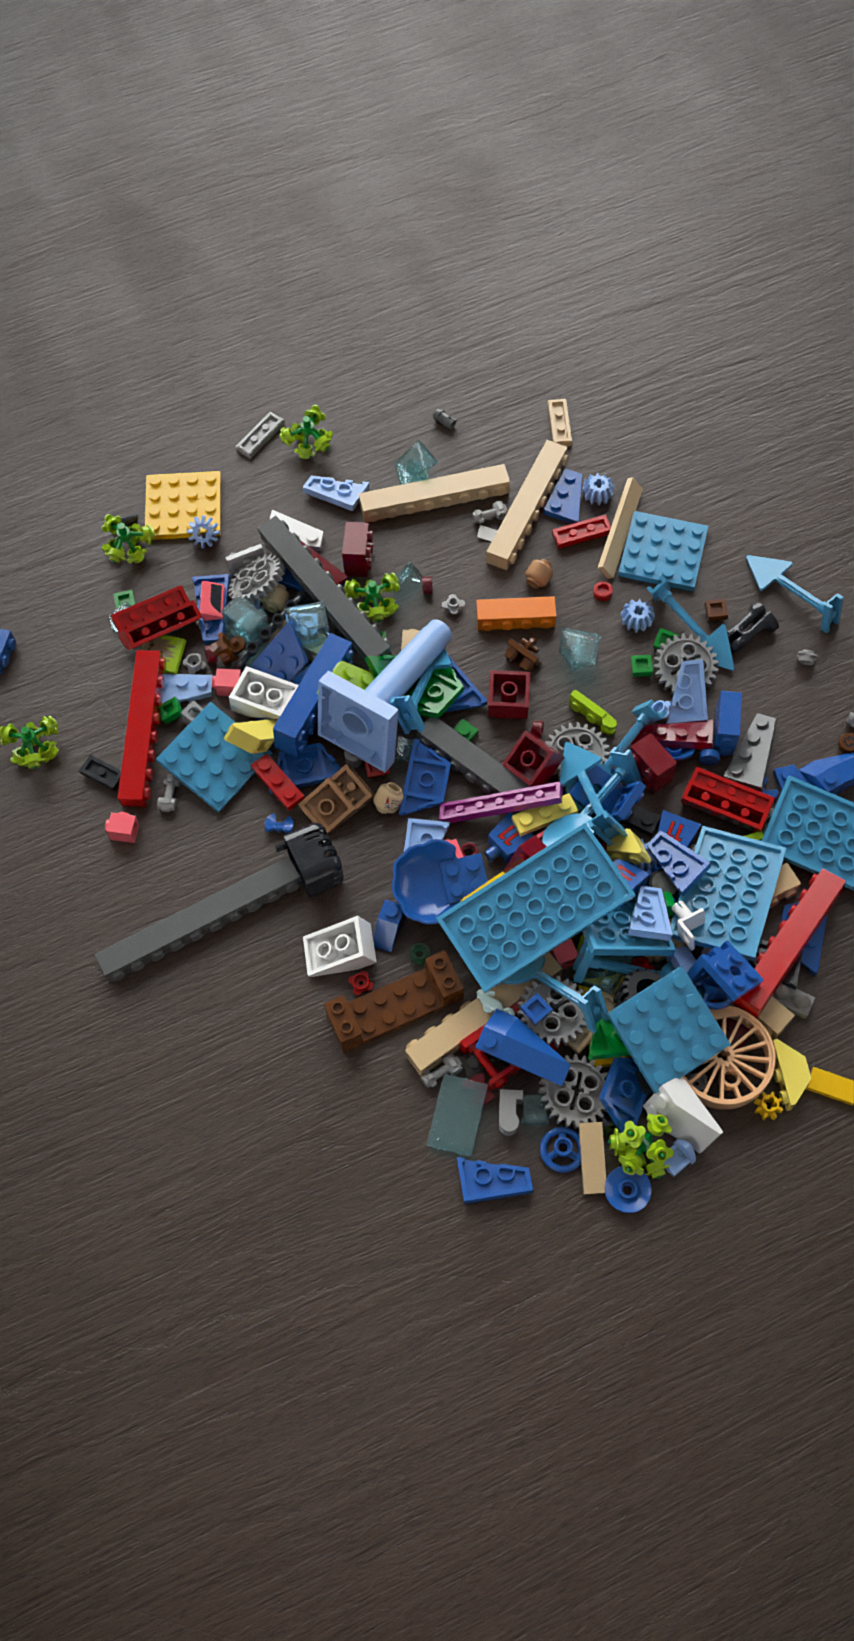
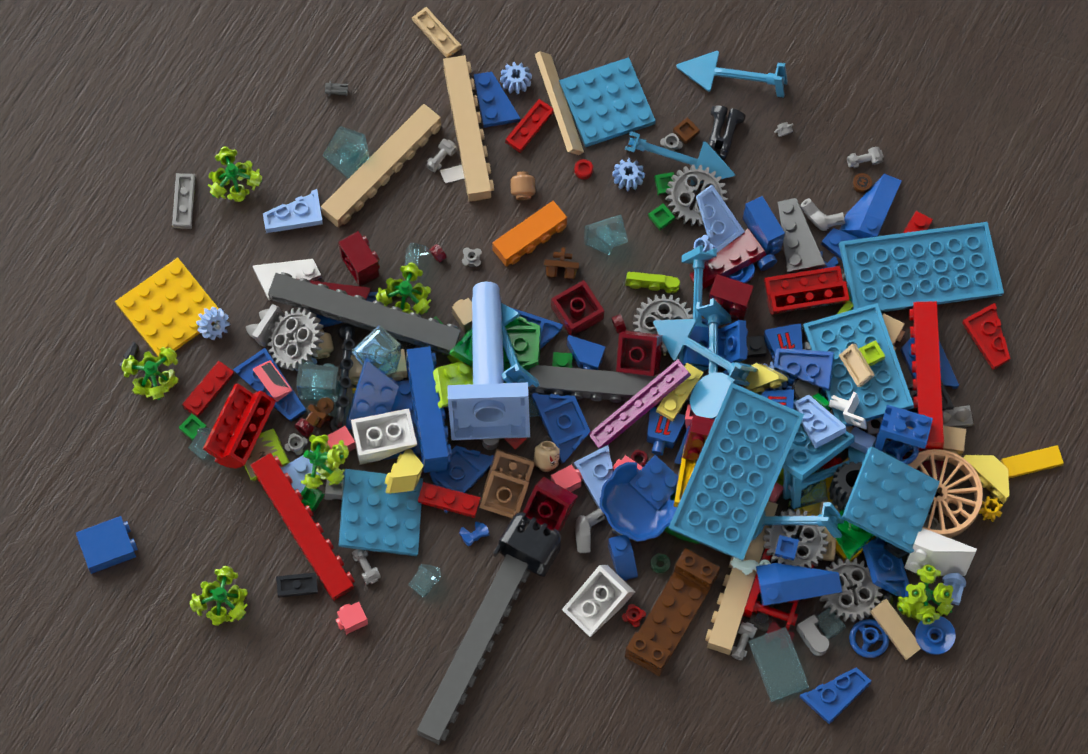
camera: 40 degrees left, 5 degrees up
(162, 581) = (208, 389): none -> red plate
(199, 684) = (325, 462): none -> lime plant
(207, 834) = (425, 579): none -> clear light blue tile
(356, 839) = (550, 504): none -> dark red brick
(371, 881) = (583, 527): none -> light grey arm
(390, 830) = (568, 478): none -> coral brick
(490, 736) = (585, 353): none -> blue slope
(696, 608) = (671, 138): none -> light grey plate
(724, 888) = (856, 365): none -> tan tile
(746, 887) = (872, 353): none -> lime plate
(786, 750) = (820, 219): none -> light grey arm

